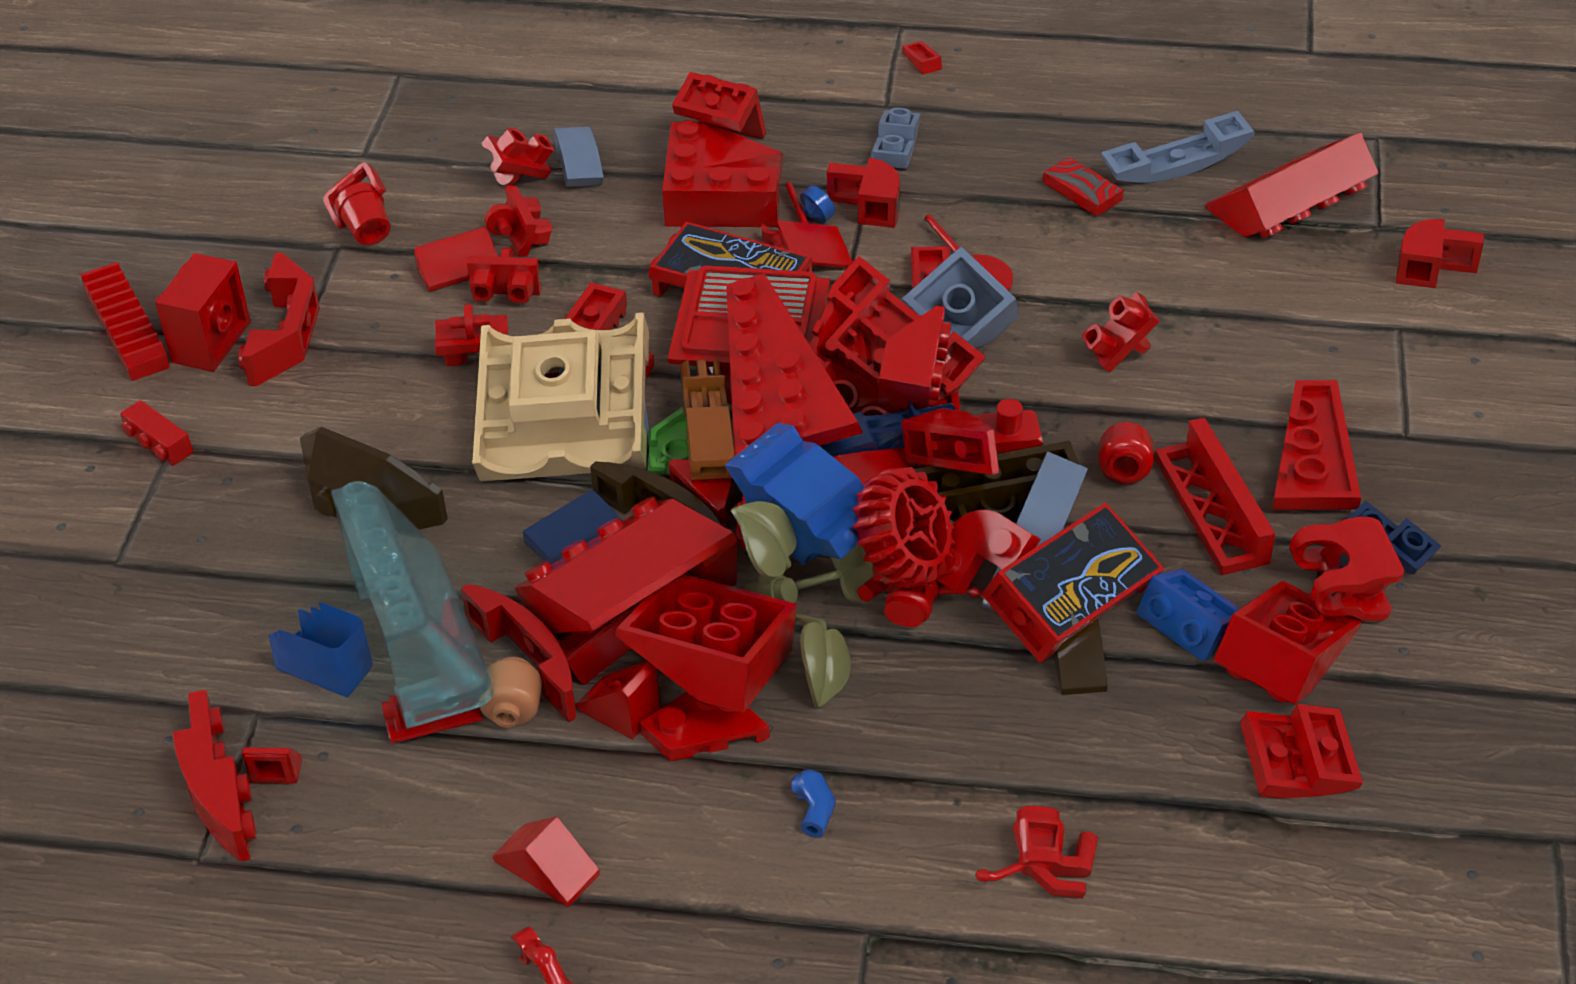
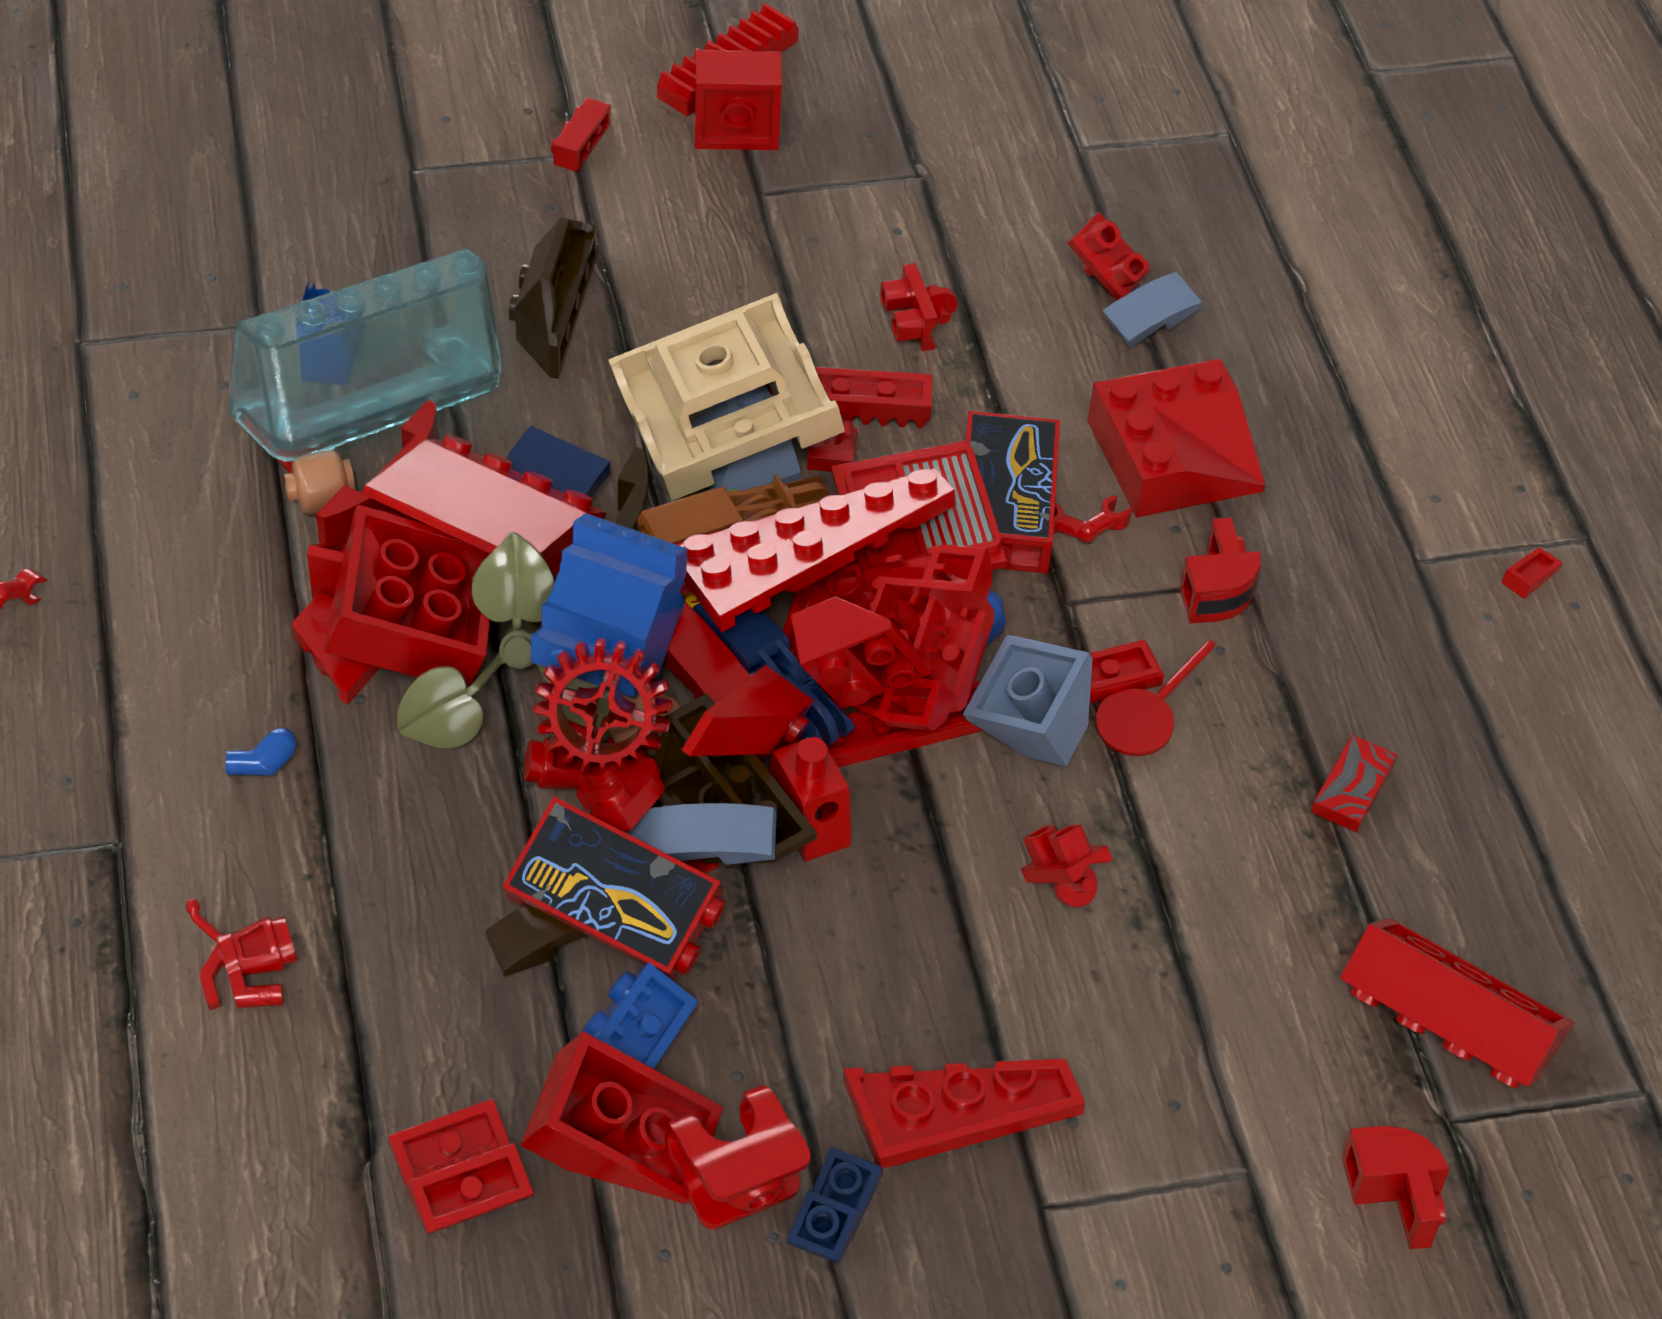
camera: 65 degrees right, 5 degrees up
(214, 778) = (148, 313): red slope -> none
(272, 764) = (193, 348): red slope -> none
(275, 351) = (716, 171): red slope -> none
(359, 205) = (967, 165): red piece -> none
(445, 260) = (936, 261): red slope -> none
(463, 334) = (808, 309): red hips -> none
(519, 221) = (1008, 289): red hips -> none
(549, 860) = (130, 574): slope -> none
(722, 104) = (1264, 388): red bracket -> none
(816, 240) = (1111, 551): red piece -> none
(817, 204) = (1175, 535): blue tile -> none
(896, 137) = (1354, 582): sand blue slope -> none
(1126, 453) = (864, 911): red head -> none
(1182, 157) = (1462, 868): sand blue slope -> none
(1227, 499) = (836, 1025): red fence -> none

